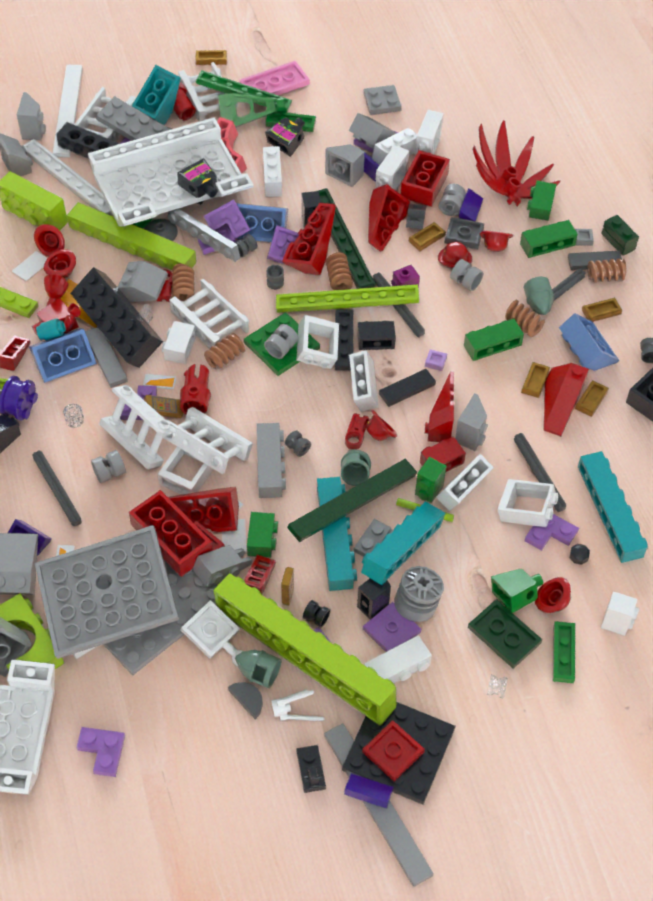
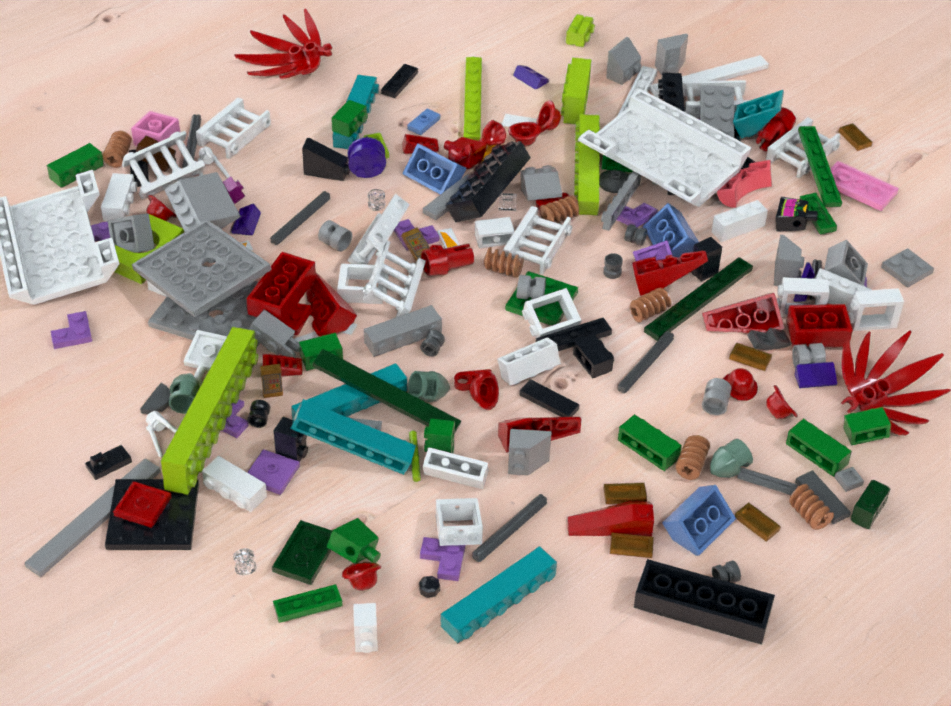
camera: 65 degrees right, 10 degrees down
(50, 329) = (444, 147): teal brick -> none
(198, 179) = (671, 164): black torso -> none
(228, 103) = (790, 164): green plate -> none
(230, 215) = (653, 207): medium lavender plate -> none
(347, 298) = (622, 321): lime plate -> none
(368, 790) = (98, 501): dark purple slope -> none
(405, 276) = (677, 355): magenta brick -> none
(418, 594) = (308, 470): light grey wheel -> none
(436, 360) = (597, 410): lavender tile -> none
(446, 451) = (479, 445): red brick -> none
(465, 232) = (779, 375): dark grey tile -> none

